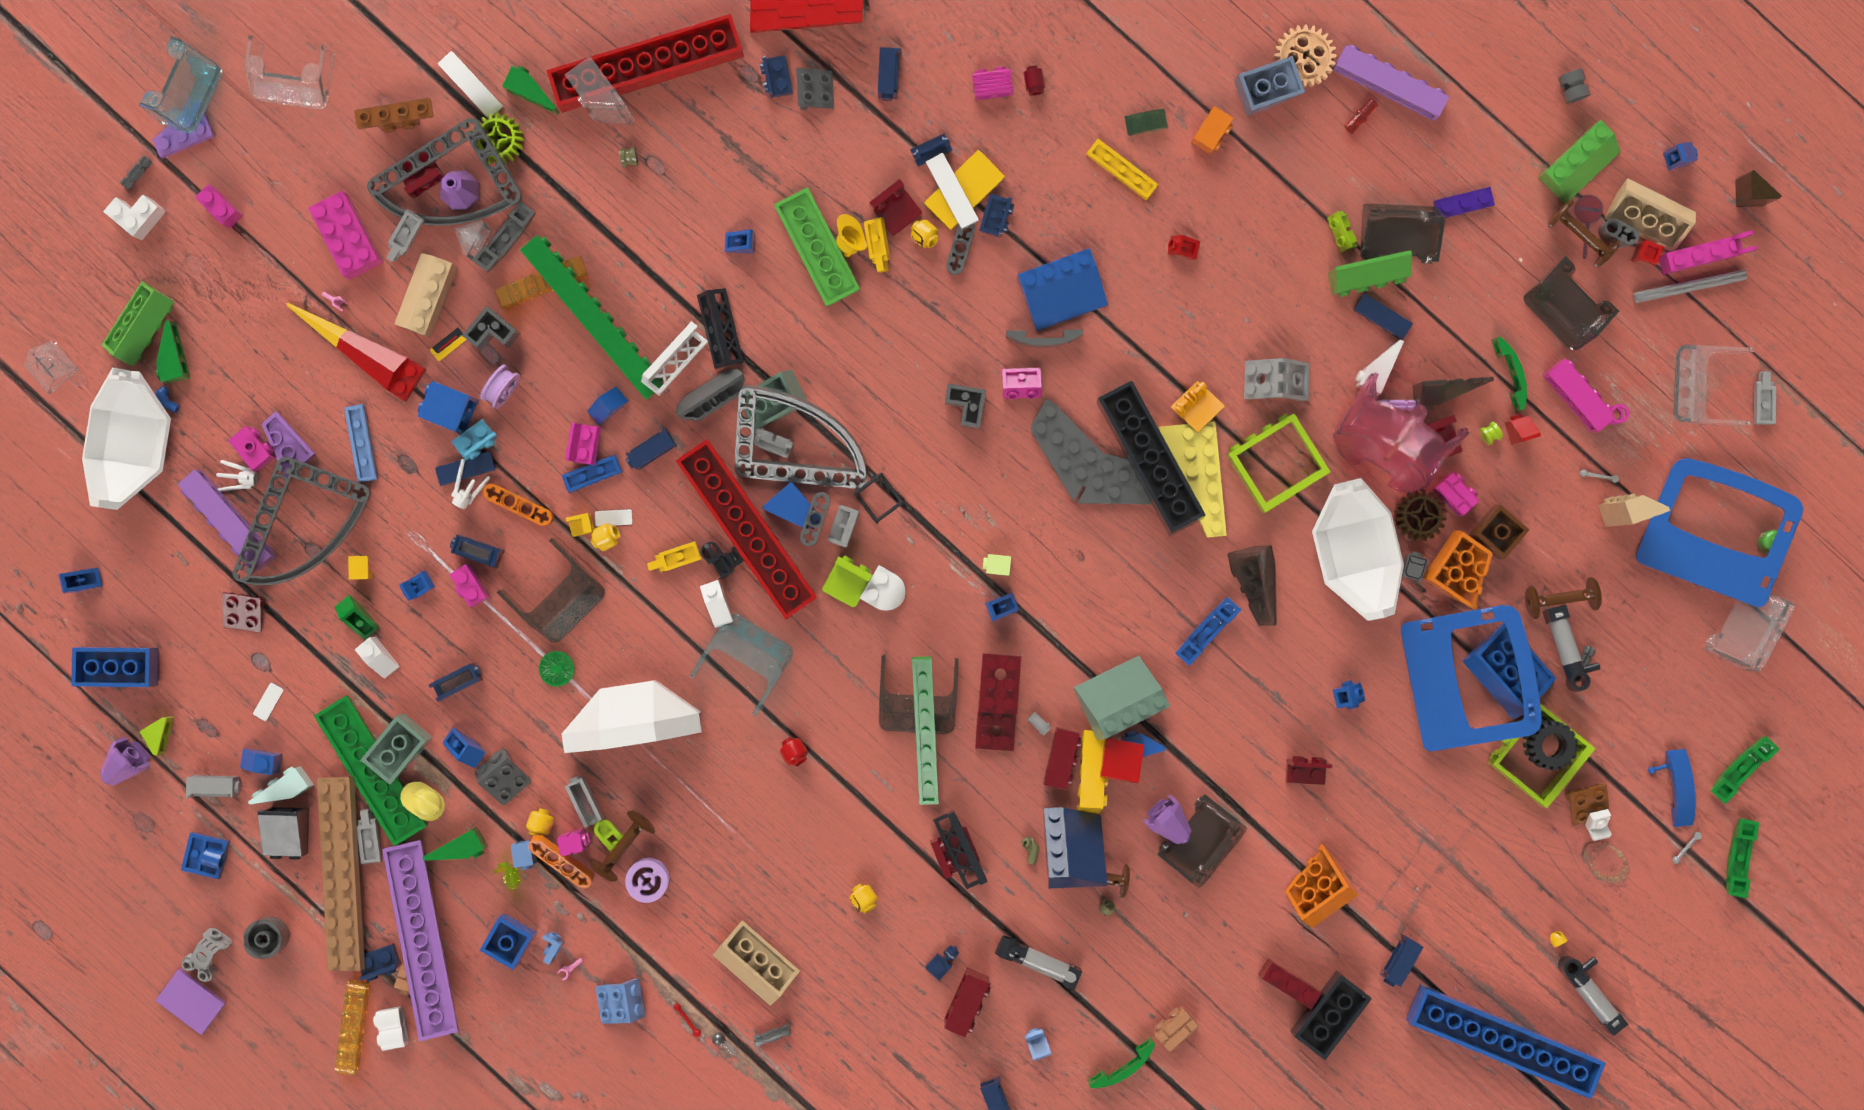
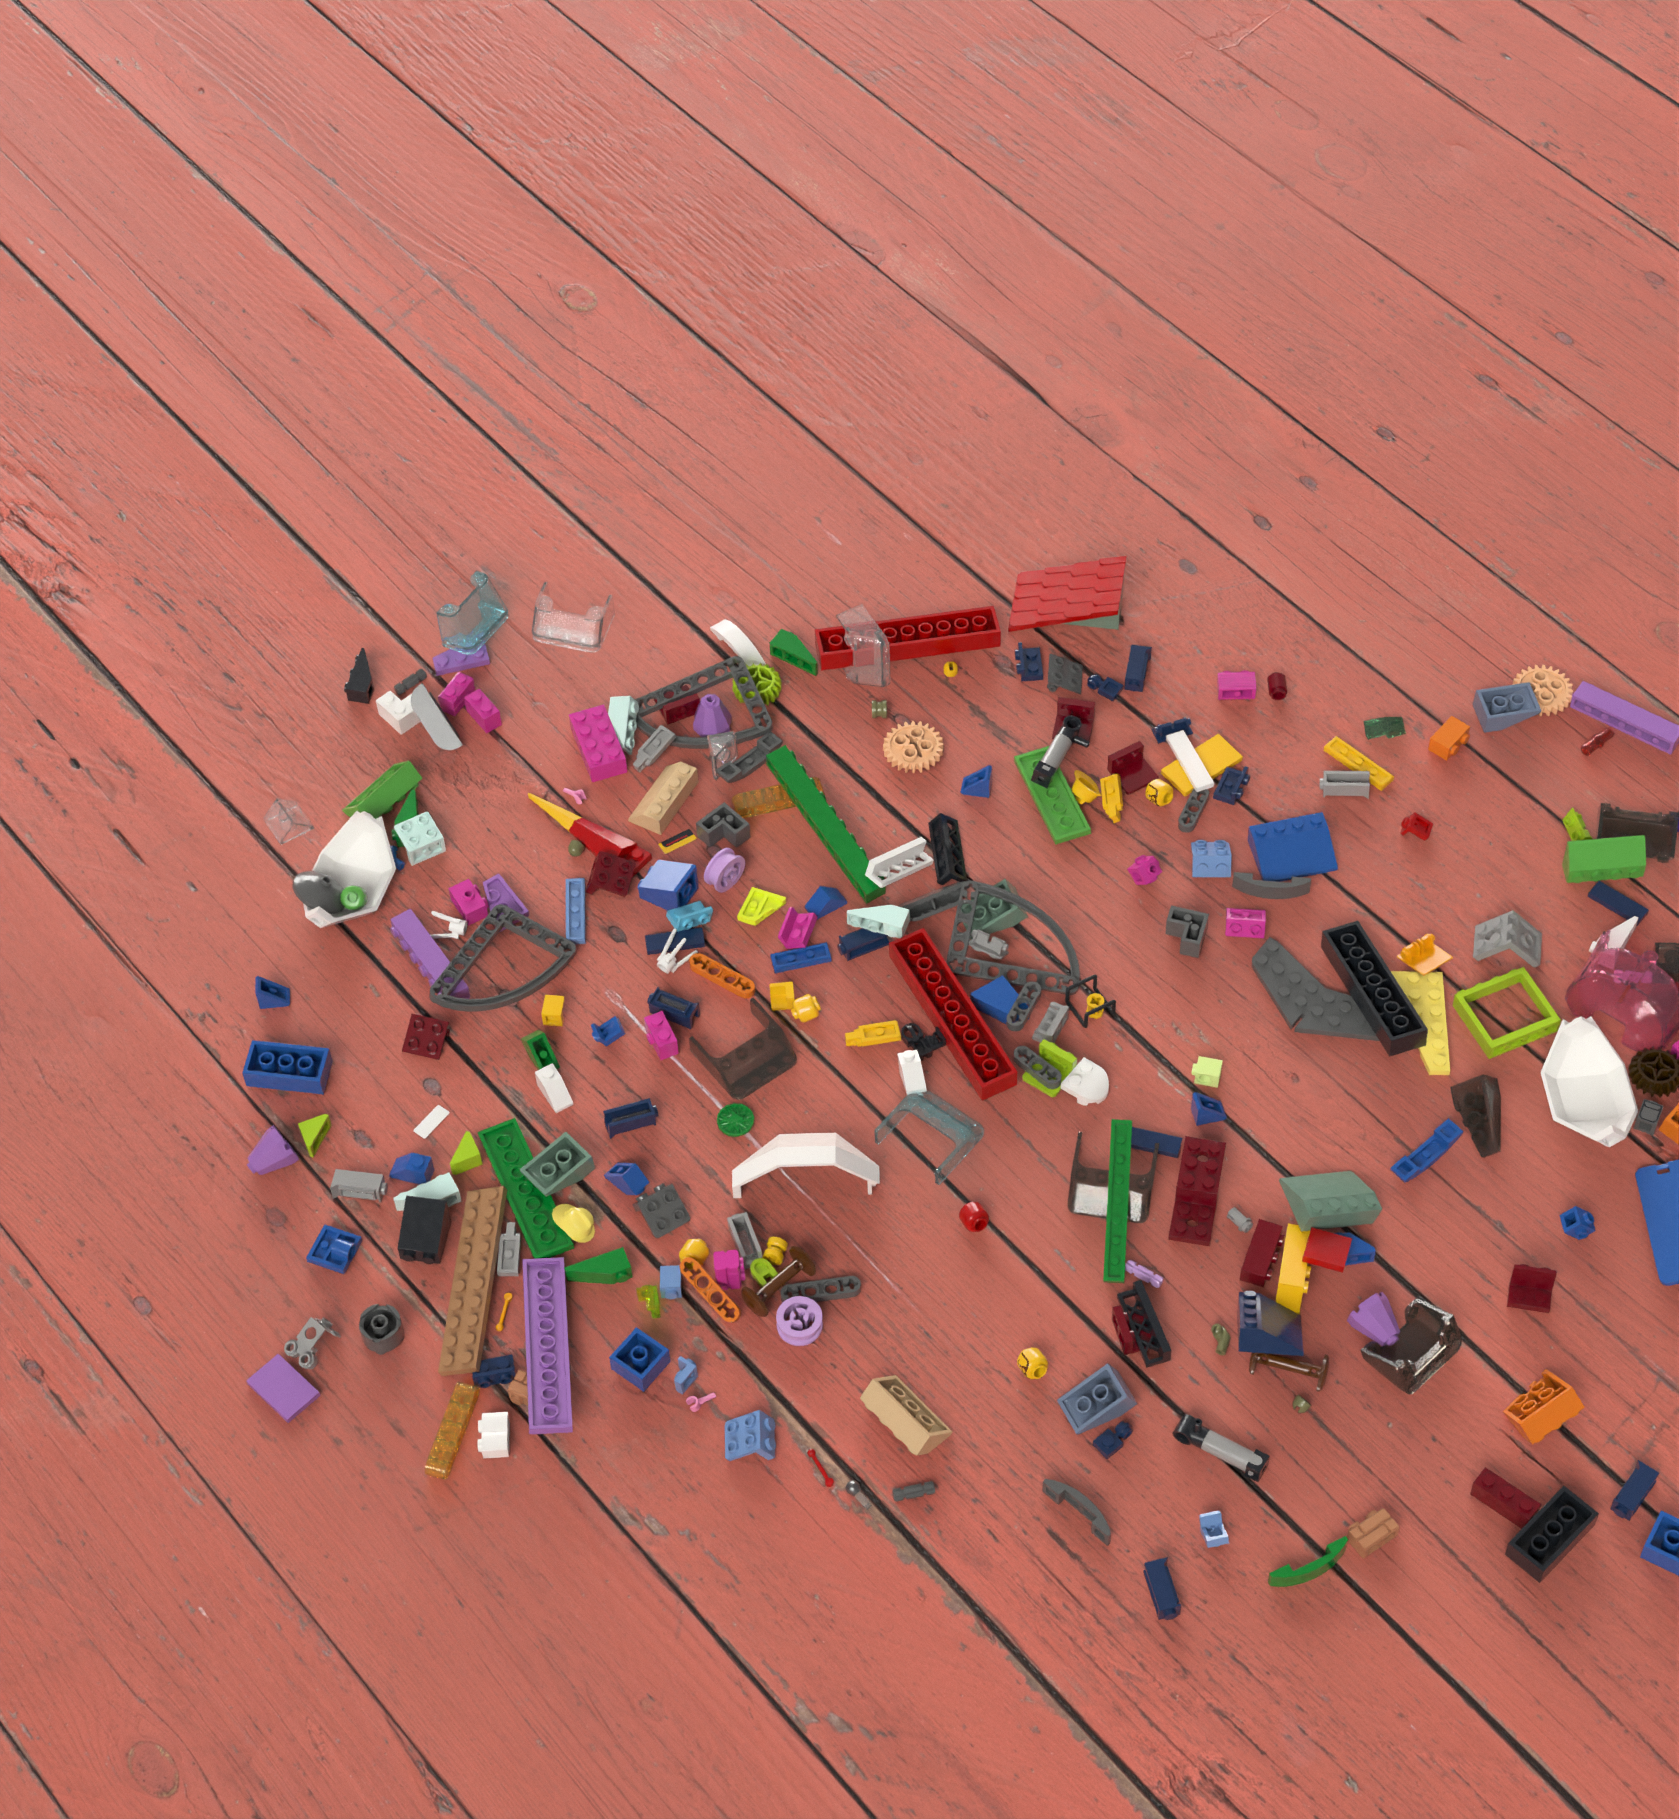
camera: 10 degrees right, 35 degrees down
(84, 180) = (360, 683): none -> black slope
(99, 471) = (317, 890): none -> dark grey dish
(135, 461) = (354, 897): none -> bright green head
(171, 228) = (434, 719): none -> brick
(185, 378) = (420, 838): none -> light aqua bracket
(187, 186) = (452, 697): none -> dark pink brick
(308, 739) = (466, 1156): none -> lime slope
(347, 370) = (575, 848): none -> olive hinge
(365, 204) = (623, 716): none -> light aqua slope
(377, 882) = (508, 1297): none -> light orange hinge
(388, 402) = (610, 874): none -> dark red bracket
(395, 115) = (664, 657): dark orange bracket -> none
(542, 419) = (759, 906): none -> neon yellow wing
(614, 517) = (823, 998): white sticker -> none
(614, 809) = (775, 1250): none -> yellow wheel
(656, 212) = (903, 751): none -> light nougat gear
(662, 841) = (820, 1286): none -> dark grey beam
(667, 434) = (881, 919): none -> light aqua slope
(700, 92) = (950, 673): none -> yellow hinge
(817, 198) = (1067, 734): none -> piece
(820, 576) = (1041, 1075): none -> dark grey beam
(830, 153) = (1072, 707): none -> dark red bracket
(862, 102) = (1109, 688): none -> dark blue plate
(884, 495) = (1097, 1001): none -> yellow bush
(900, 1022) = (1059, 1491): none -> dark grey slope
(918, 334) = (1145, 870): none -> dark pink brick
(925, 928) = (1097, 1400): none -> sand blue slope
(949, 646) = (1146, 1140): none -> dark blue tile
(955, 790) = (1144, 1273): none -> lavender axle
(967, 1002) = (1137, 1472): dark red brick -> none
(982, 308) = (1211, 859): none -> medium blue bracket
(1110, 202) = (1345, 783): none -> light grey window

